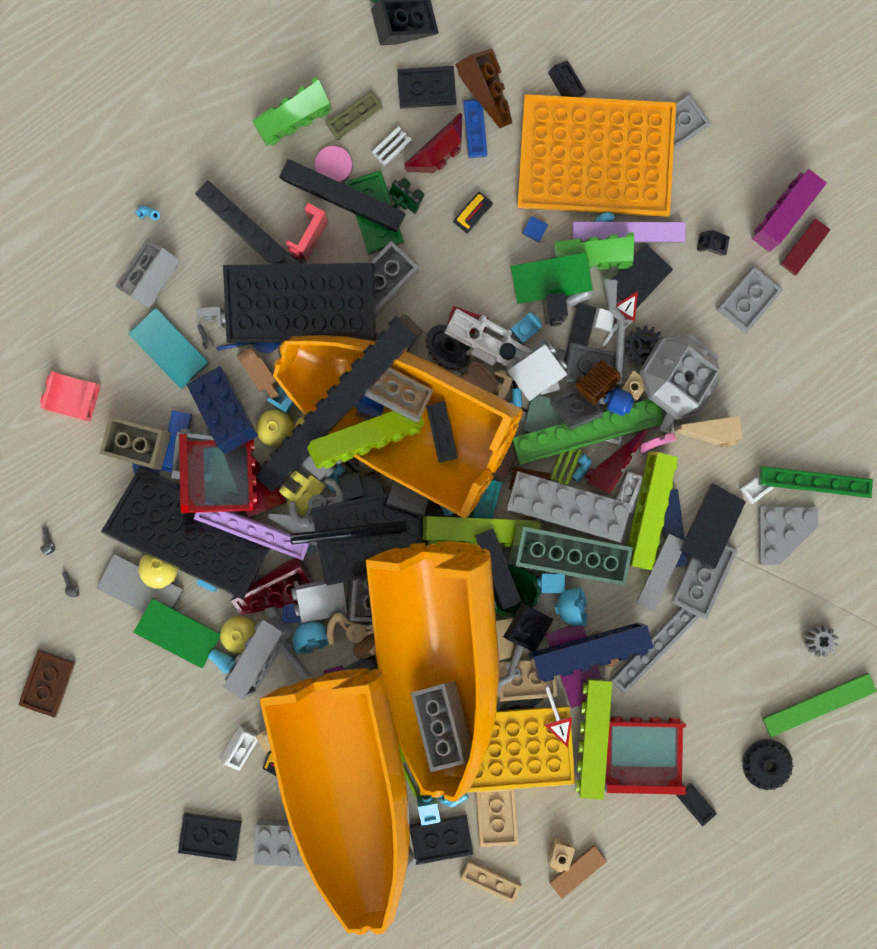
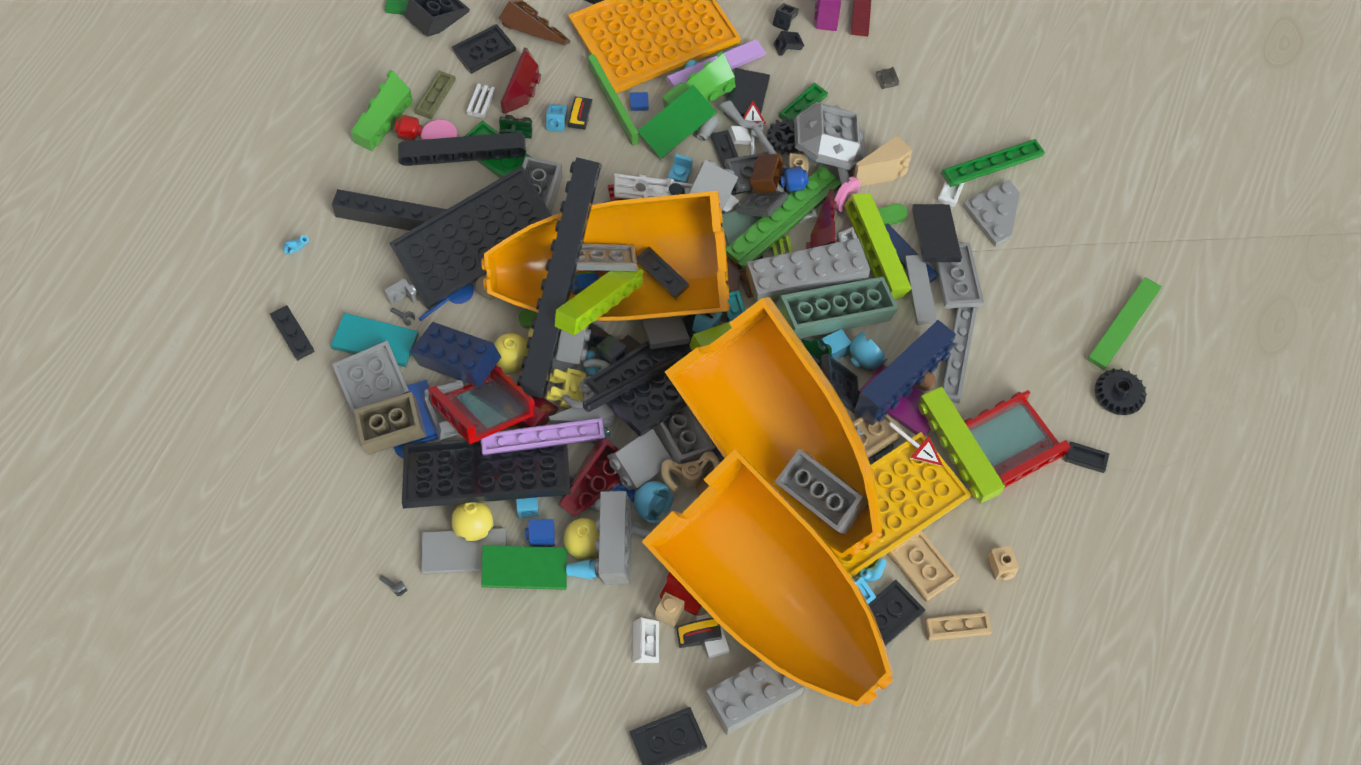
camera: 30 degrees left, 25 degrees down
(47, 683) = (420, 687): reddish brown tile -> none
(49, 547) = (353, 562): dark grey hand -> none
(70, 396) = (304, 423): coral panel -> none
(103, 301) = (292, 332): none -> black plate
(143, 388) = (370, 376): none -> light grey plate
(148, 273) = (322, 289): light grey slope -> none
(206, 611) = (540, 533): none -> blue brick
(258, 371) = (469, 313): medium nougat piece -> none
(283, 401) = (502, 327): medium azure panel -> none
(308, 142) = (408, 127): none -> red head
(312, 234) = (449, 177): coral panel -> none
(449, 204) = (556, 117): none -> medium azure bracket
(475, 129) = (546, 61): blue tile -> none
(511, 215) = (613, 99): none -> bright green tile
(555, 309) = (694, 141): black brick -> none
(579, 871) = (1028, 572): medium nougat tile -> none
(583, 468) = (798, 241): medium azure arm -> none
(684, 317) = (803, 101): none -> green tile
(688, 481) = (893, 214): none -> bright green tile
(730, 210) = (784, 16): none -> black bracket
(749, 299) = (845, 68): light grey tile -> none
(781, 334) = (887, 78): none -> clear smoke tile
(827, 639) = (1087, 272): light grey gear -> none

